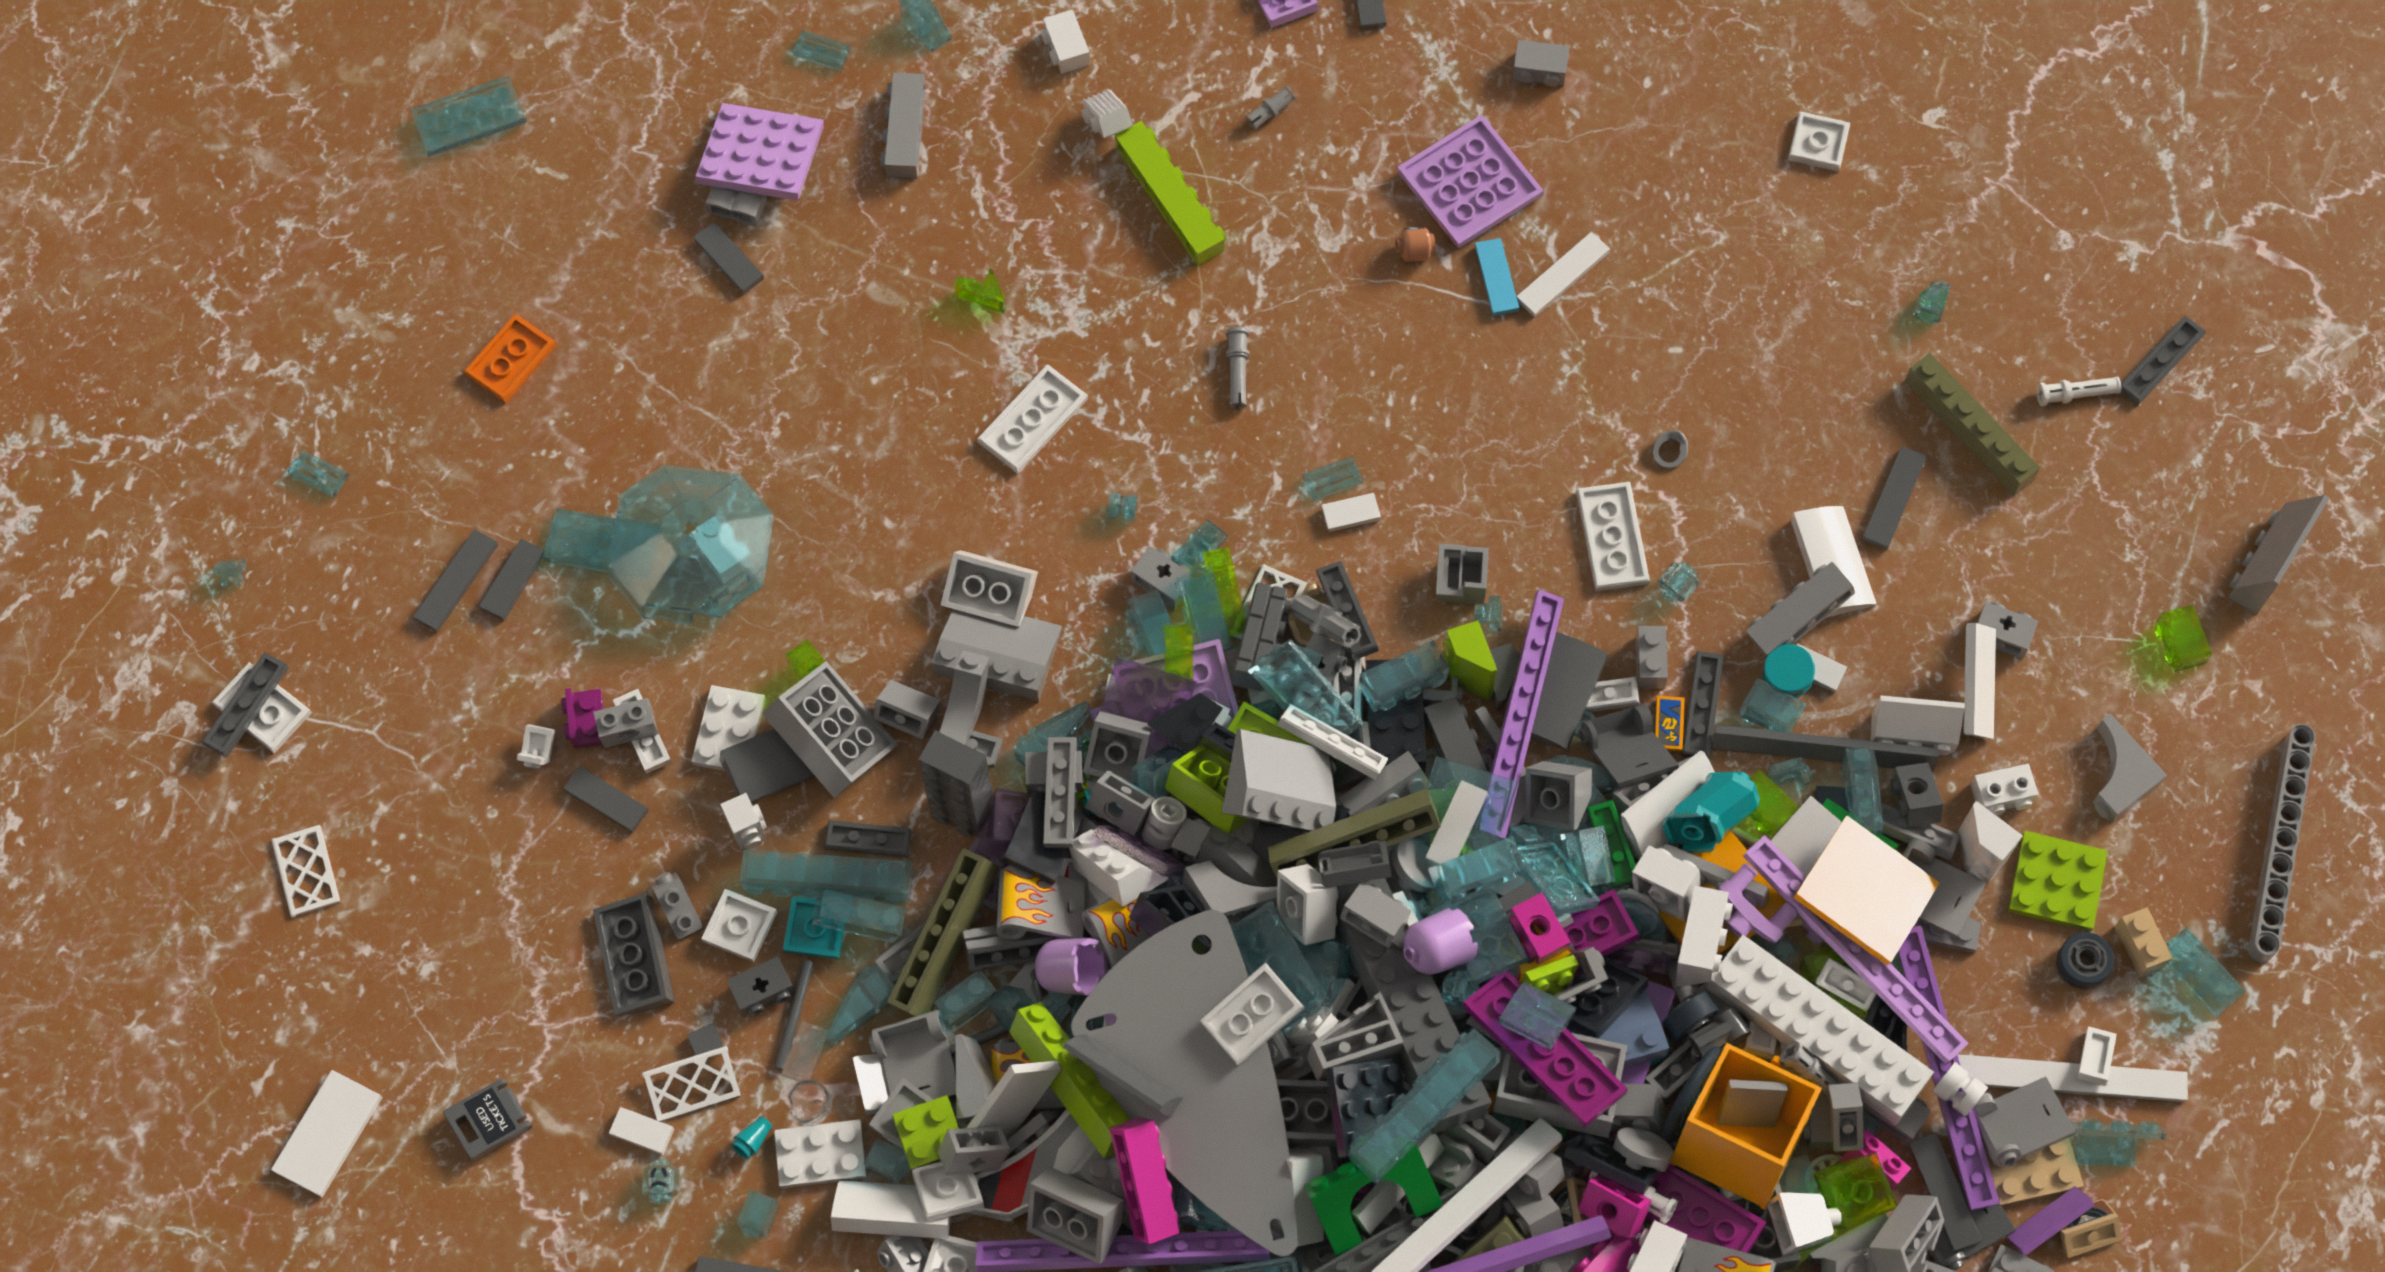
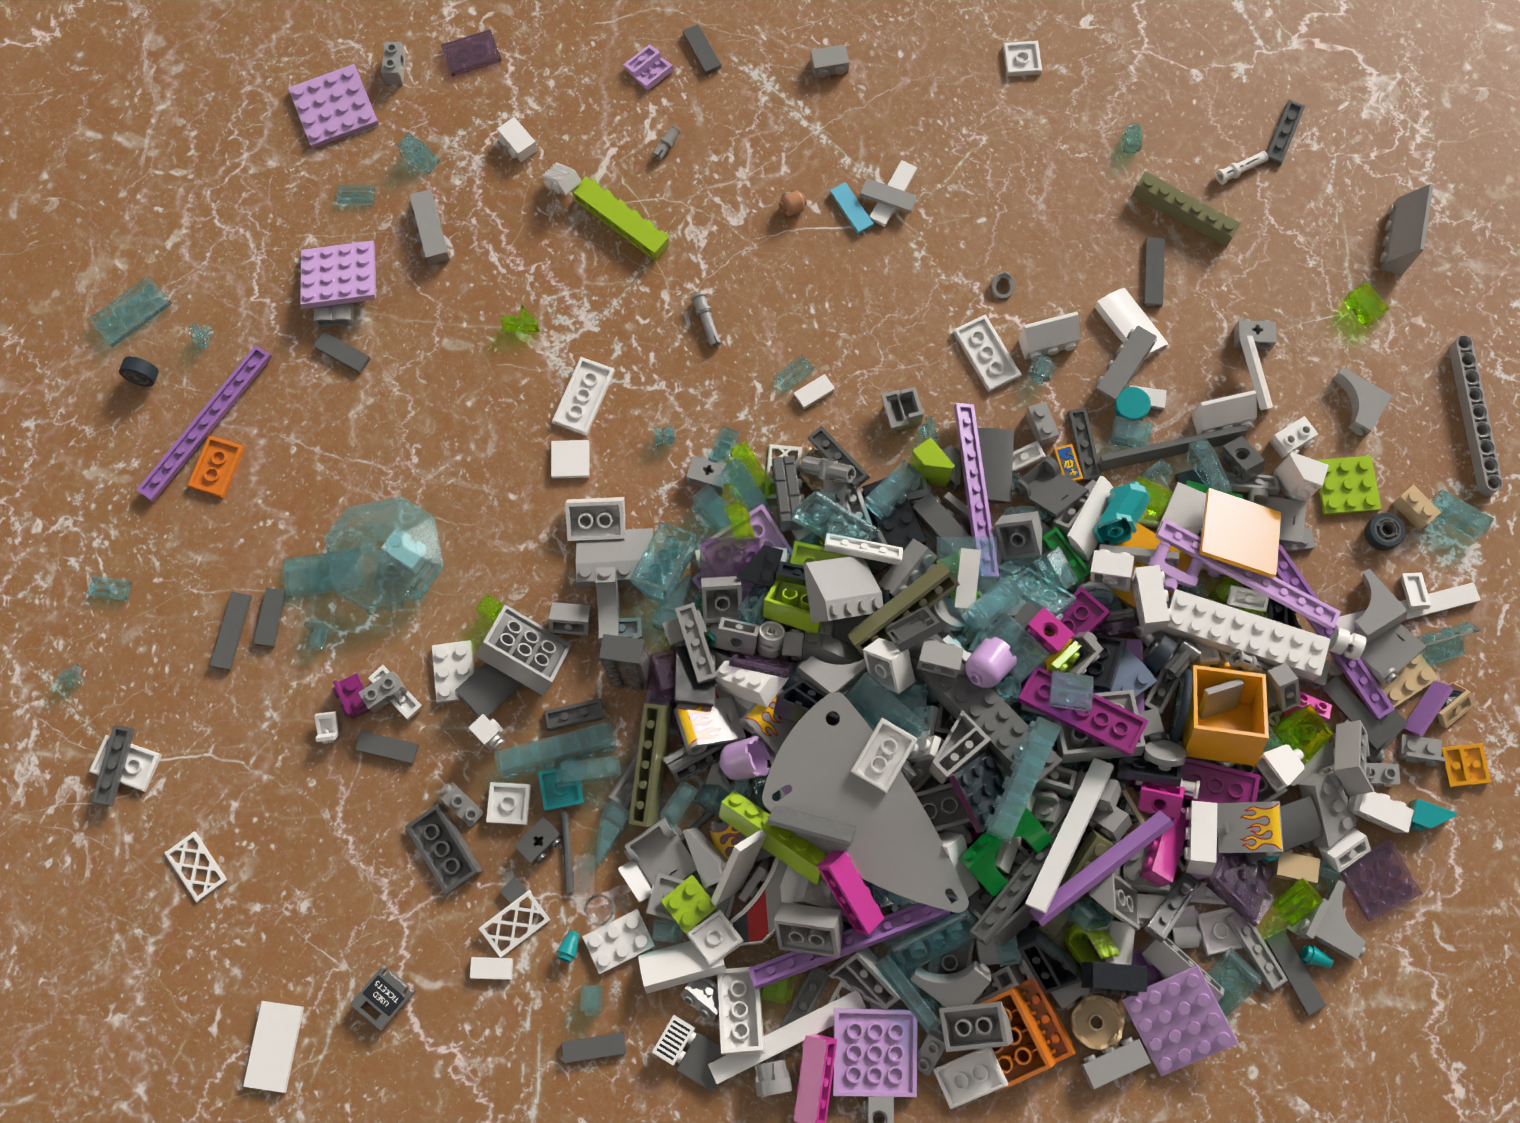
camera: 20 degrees left, 5 degrees up
(452, 199) = (138, 371): none -> black wheel
(514, 295) = (204, 423): none -> medium lavender plate
(550, 177) = (201, 335): none -> clear light blue tile
(568, 623) = (318, 637): none -> clear light blue bracket
(660, 1181) = (517, 999): clear light blue head -> none
(973, 1149) = (724, 907): light grey brick -> none
(984, 498) = (570, 459): none -> white tile
(1059, 674) = (664, 562): none -> clear light blue slope
(1470, 181) = (812, 151): lavender plate -> none
(1553, 275) = (888, 195): none -> light grey tile
(1708, 539) = (1050, 336): none -> white slope
(2031, 1067) = (1383, 611): none -> light grey arch

